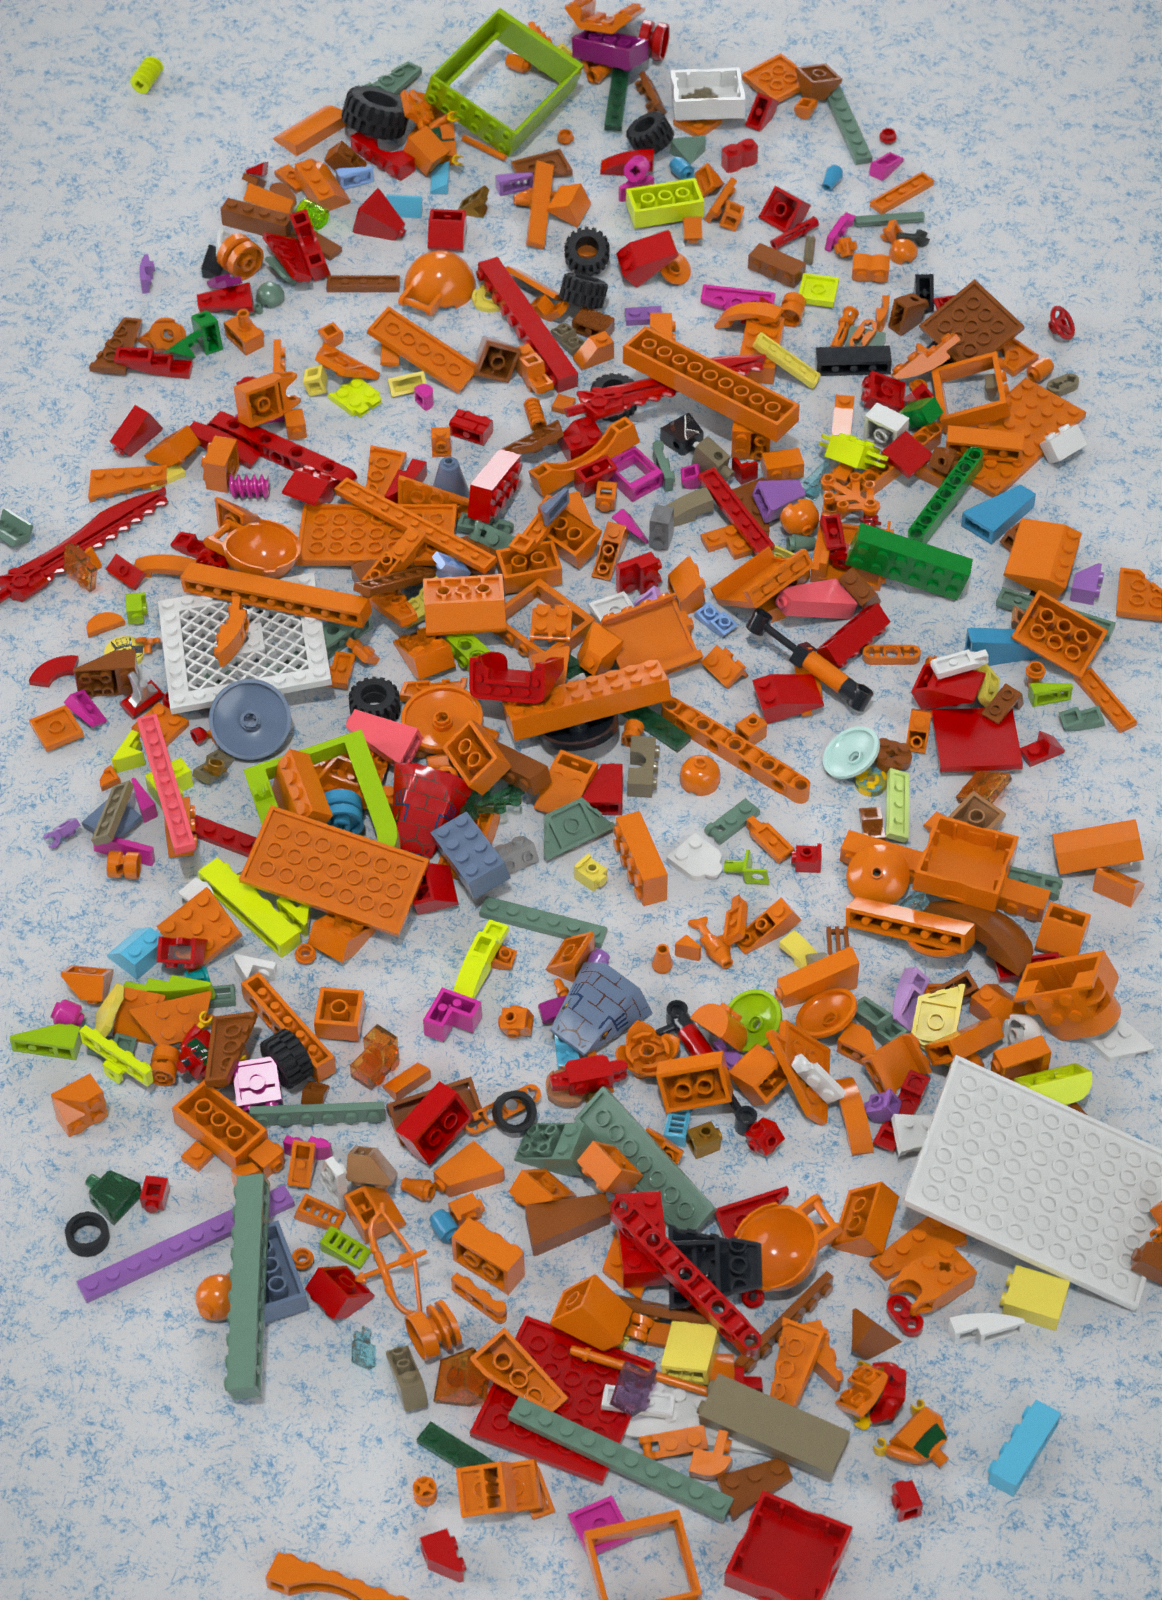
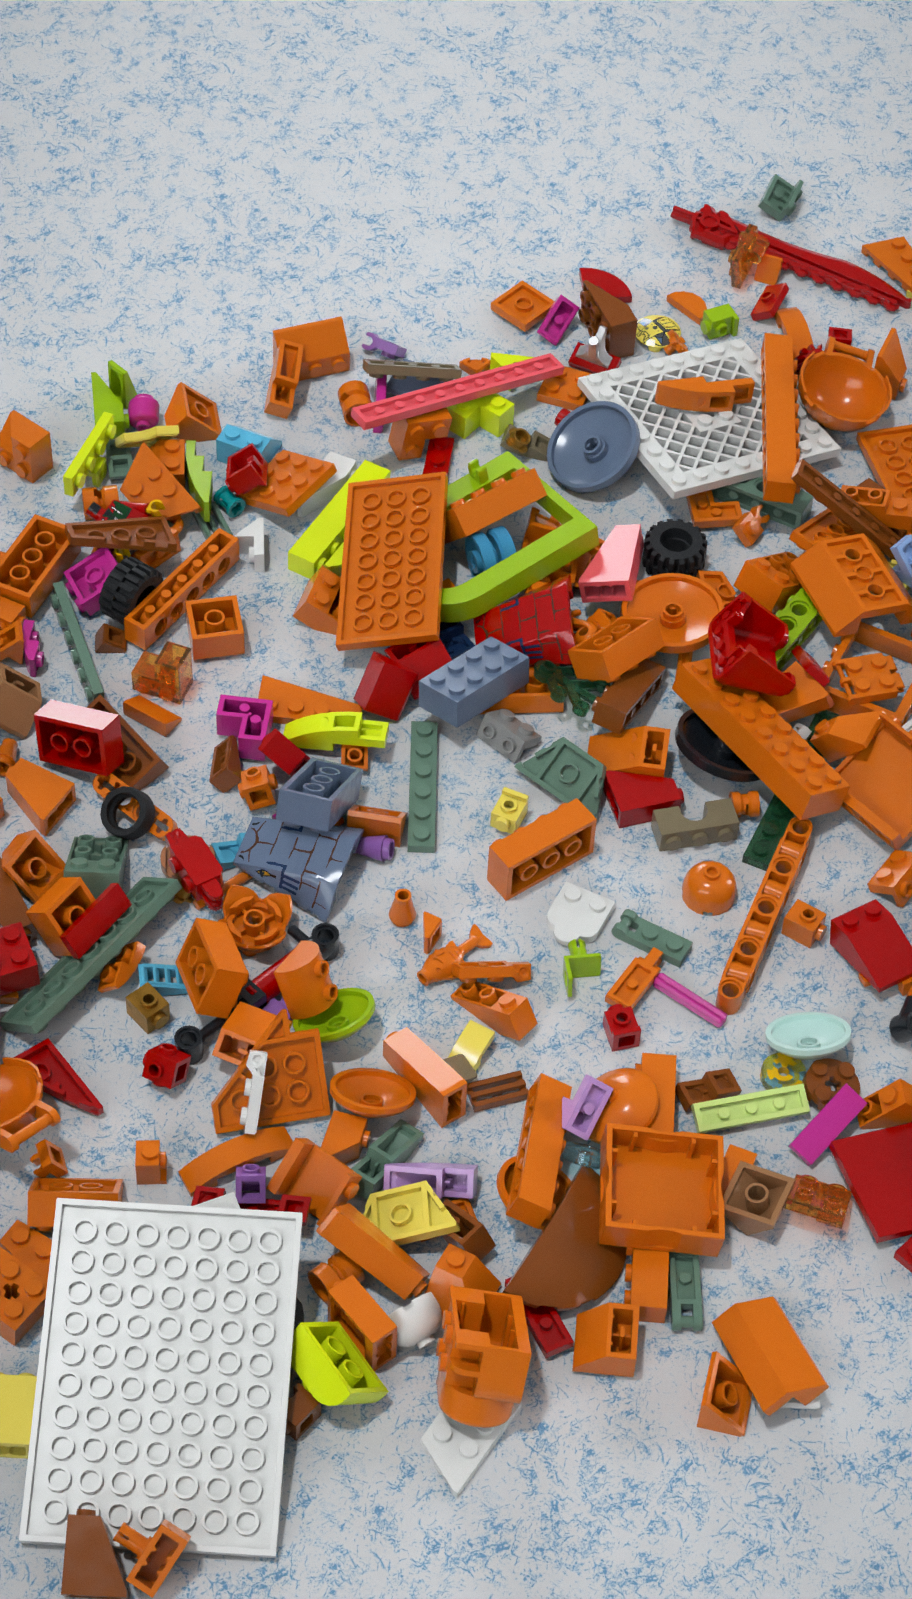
camera: 70 degrees right, 0 degrees up
(32, 1018) = (120, 383): none -> lime slope
(54, 880) = (323, 349): none -> orange slope
(80, 904) = (284, 379): none -> orange slope
(305, 949) = (295, 583): orange plate -> none
(439, 973) = (296, 702): none -> orange wing
(445, 917) = (385, 687): none -> red slope
(491, 1035) = (226, 765): none -> dark orange slope
(494, 994) = (283, 752): none -> red slope
(524, 653) = (810, 665): none -> red tile
(551, 976) = (318, 795): none -> sand blue brick
(608, 1136) = (95, 920): none -> red tile
(795, 813) = (690, 1000): none -> dark pink axle
(847, 1161) = (150, 1163): none -> orange brick
(889, 892) = (583, 1112): none -> lavender slope
(925, 766) = (827, 1124): none -> dark pink tile

